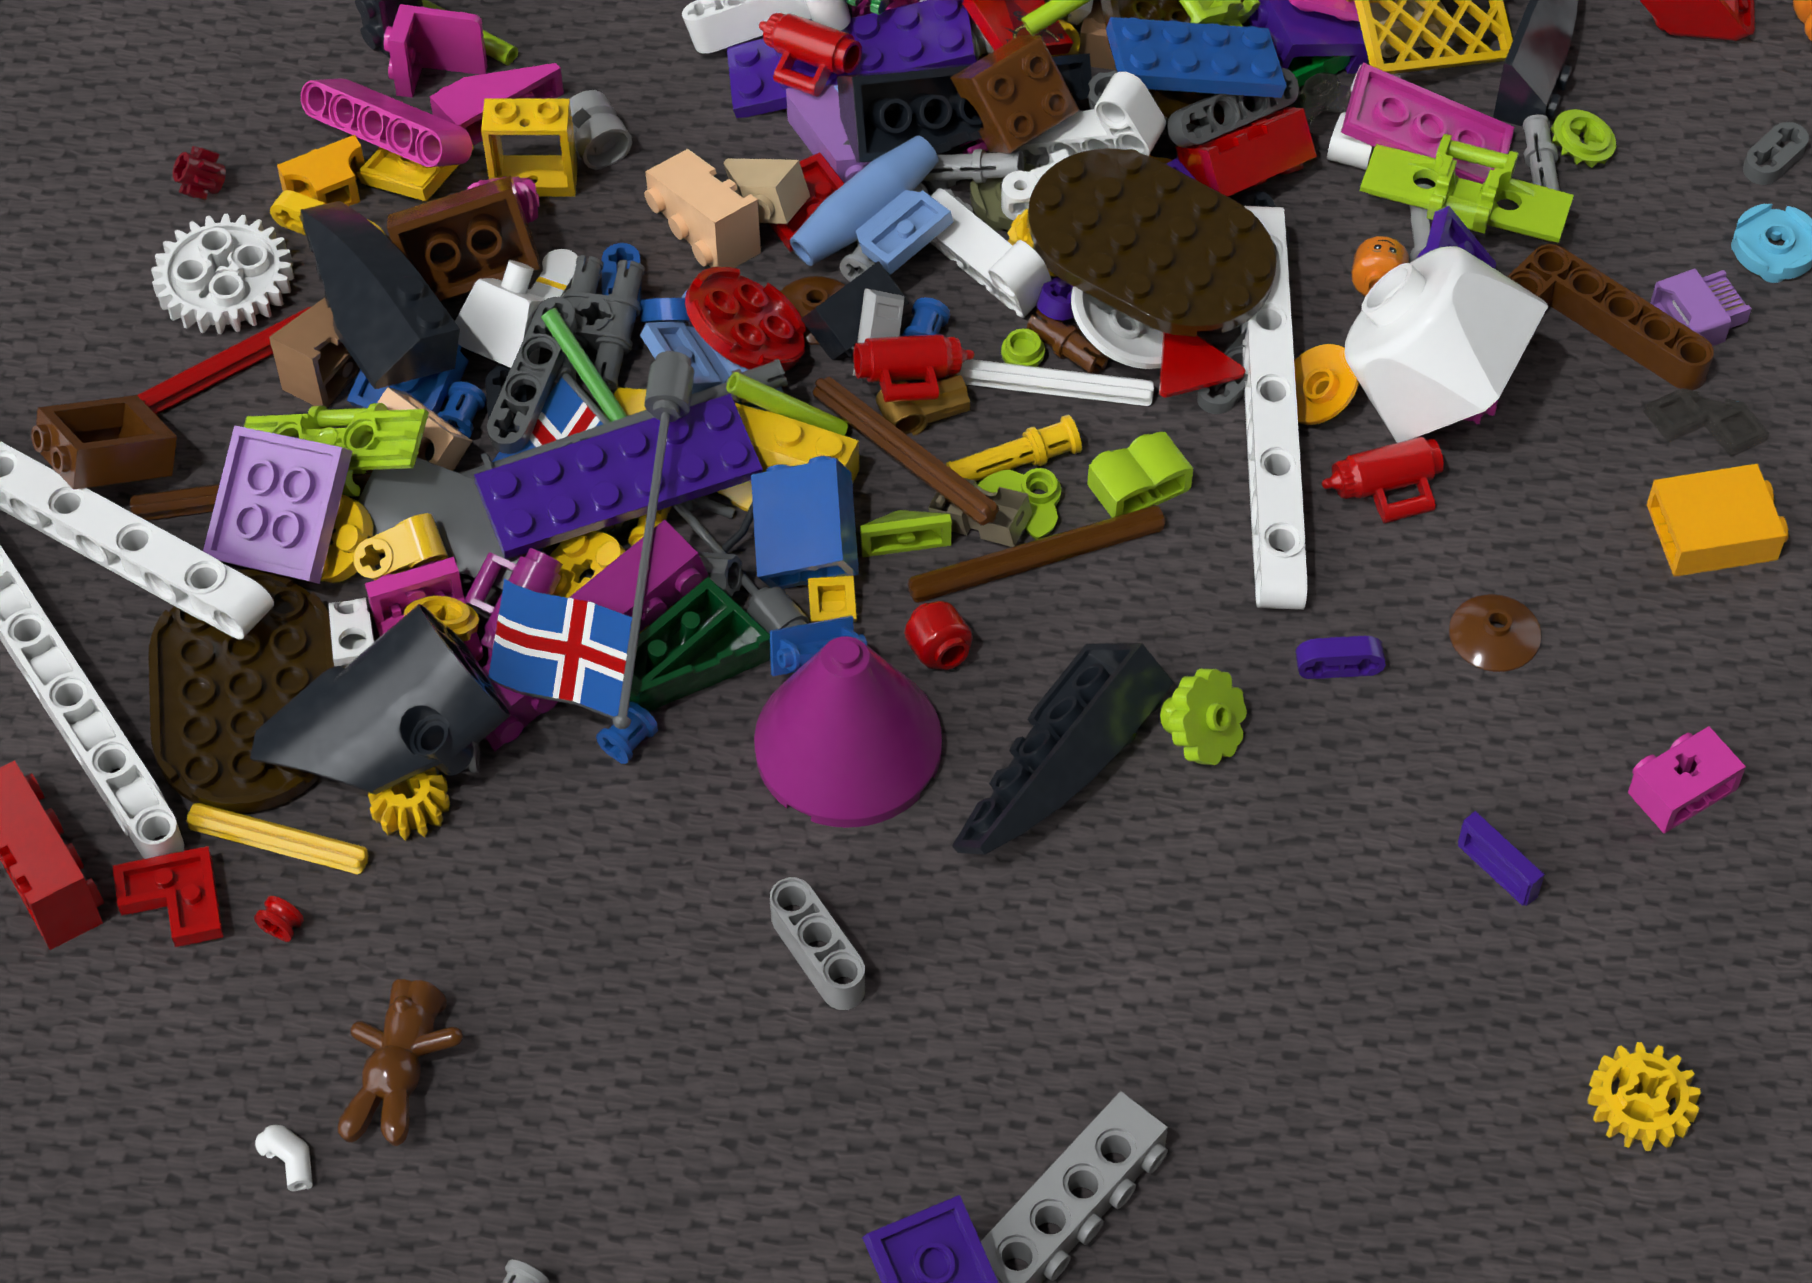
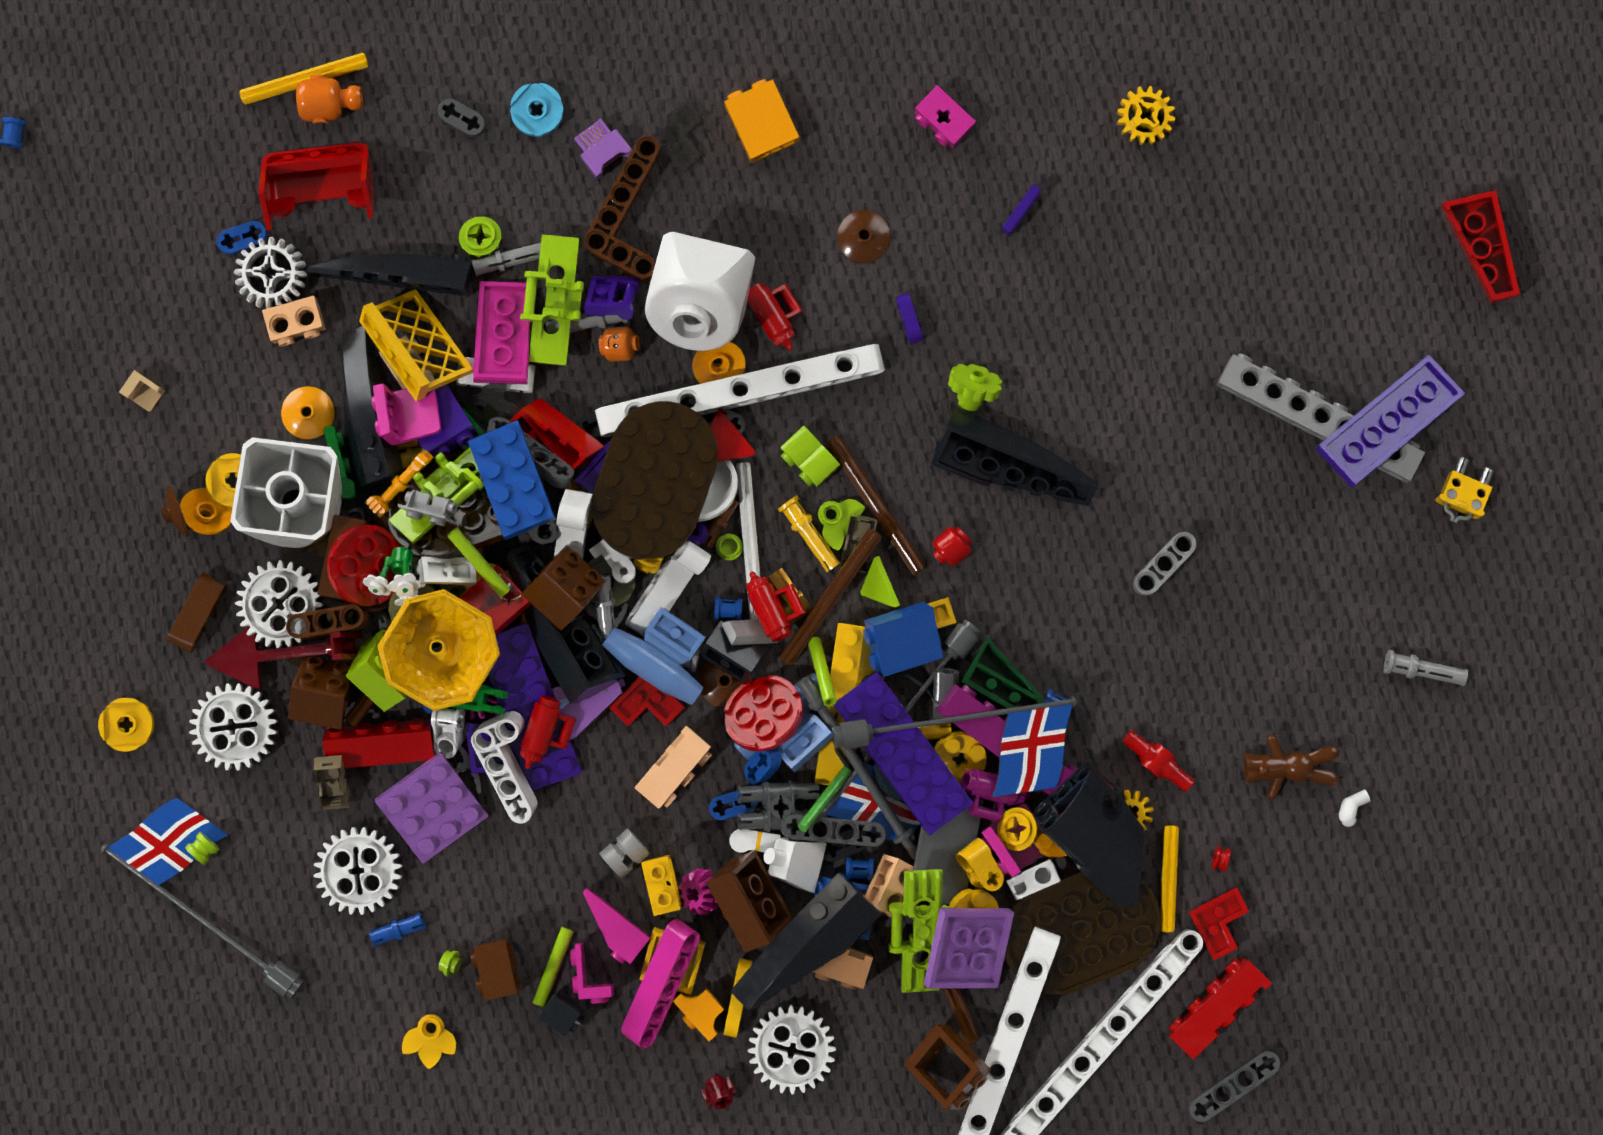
camera: 105 degrees left, 30 degrees up
(212, 369) = (855, 1024): red axle -> none
(480, 860) = (1158, 760): none -> red pin
(775, 184) = (656, 729): tan slope -> none
(797, 644) = (989, 620): blue hinge -> none
(848, 738) = (1029, 581): magenta cone -> none

